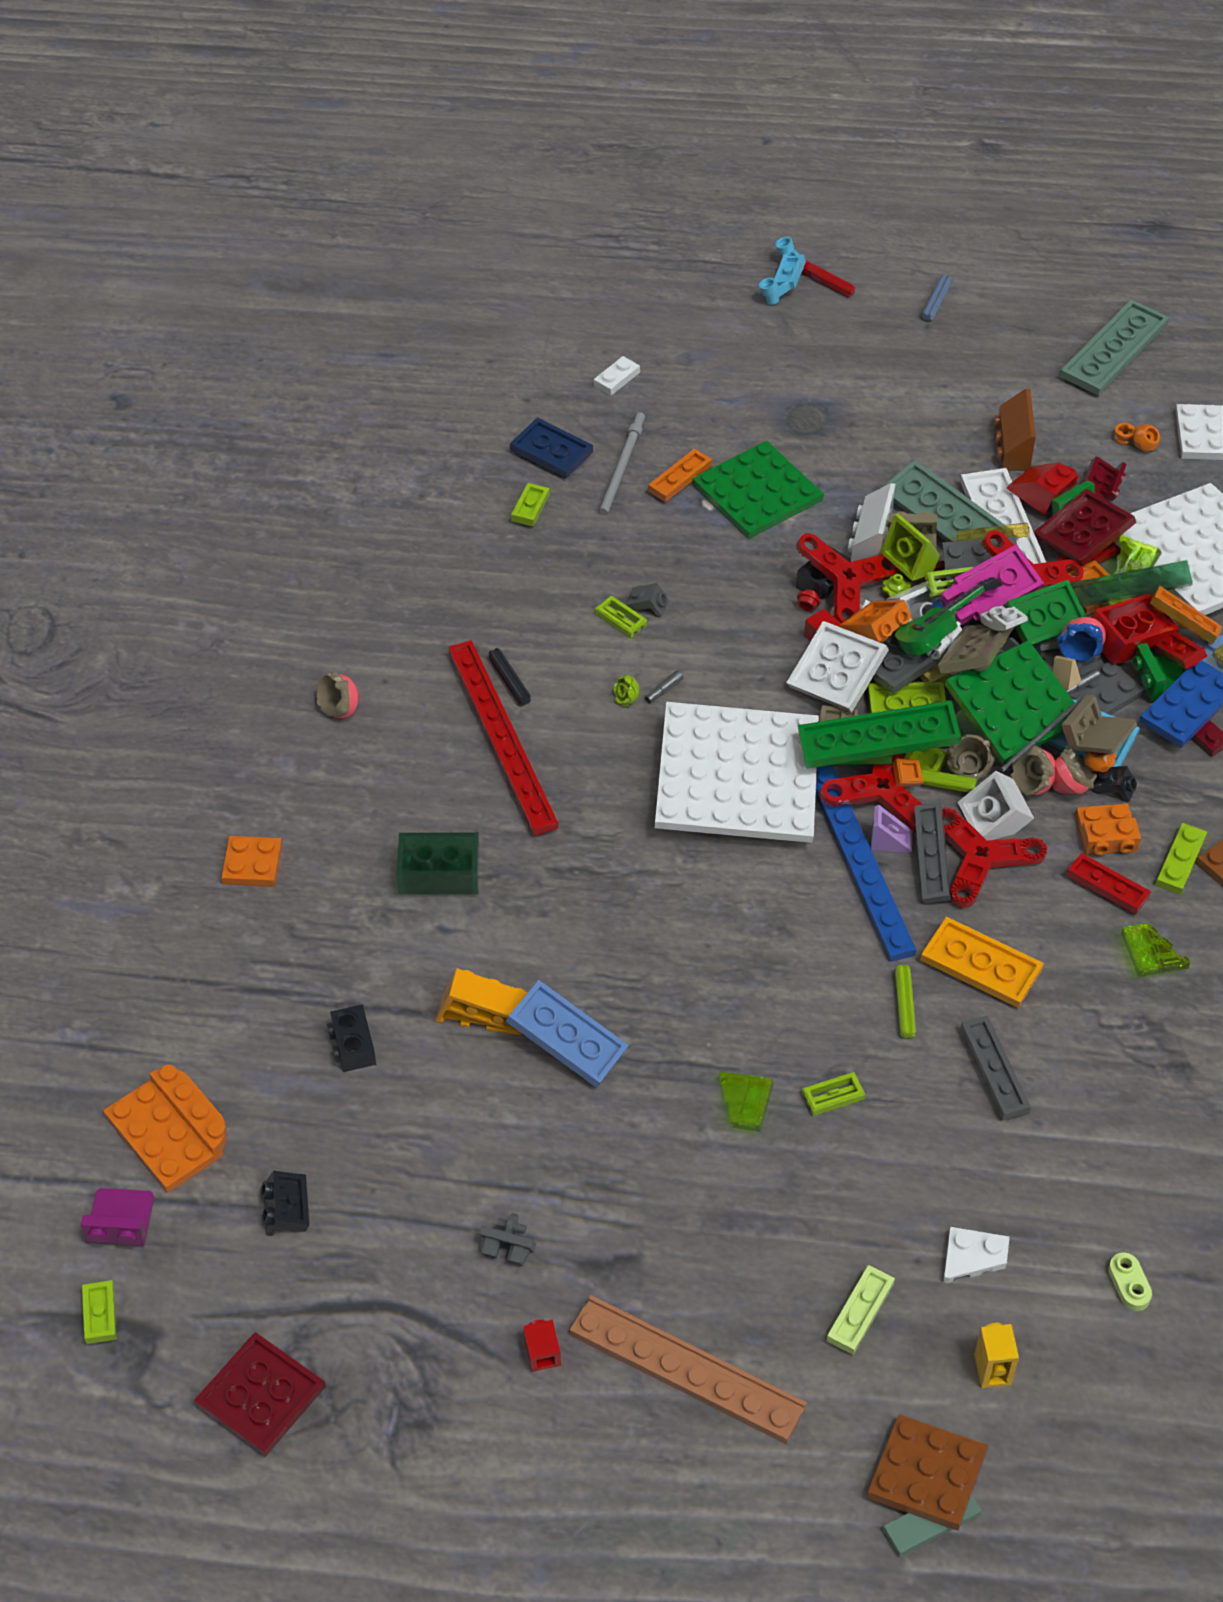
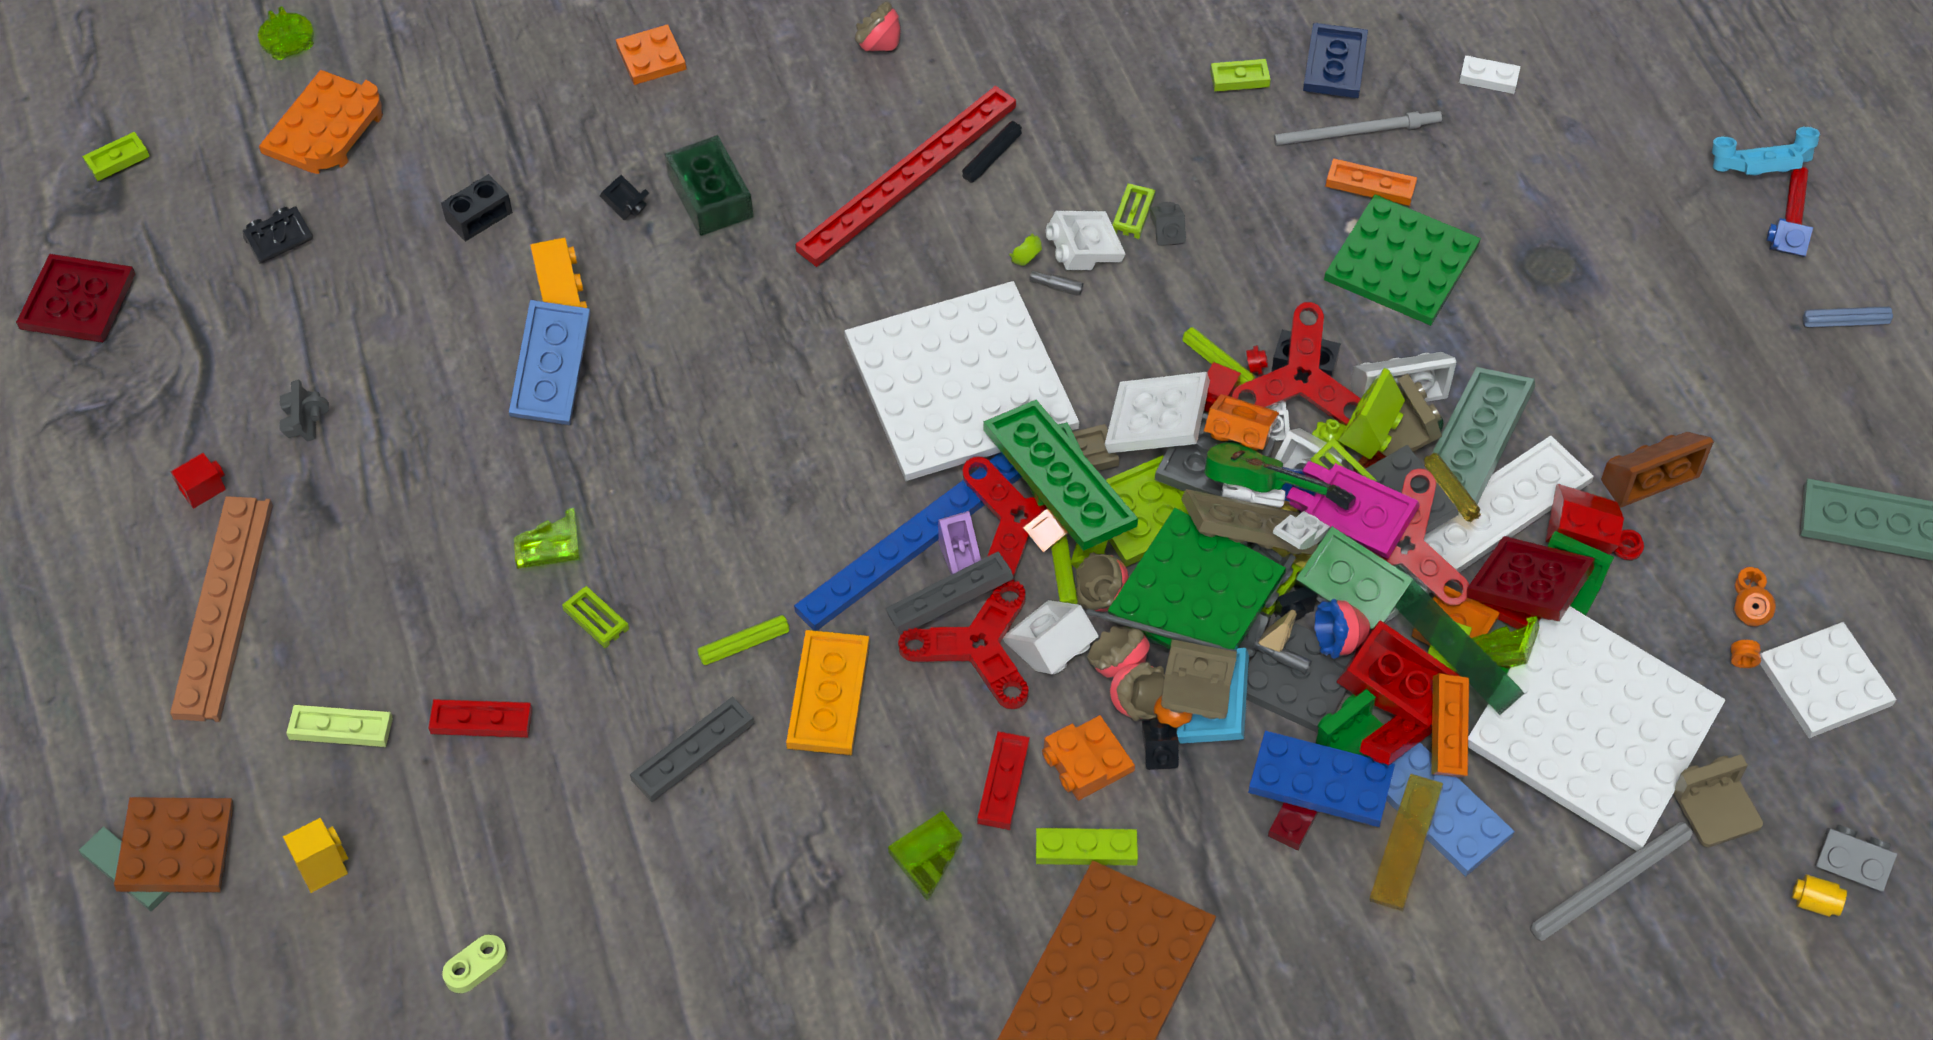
camera: 65 degrees right, 5 degrees up
(48, 1128) = (285, 34): none -> clear neon green plate
(118, 1217) = (213, 129): magenta bracket -> none
(410, 929) = (624, 197): none -> black bracket
(637, 652) = (1084, 239): none -> white plate
(784, 623) = (1213, 353): none -> lime axle
(859, 293) = (1789, 237): none -> bracket
(900, 1203) = (480, 718): none -> red plate
(974, 1253) = (450, 806): white wing -> none
(1105, 478) = (1643, 580): dark red bracket -> none
(1180, 458) = (1745, 653): none -> orange bush

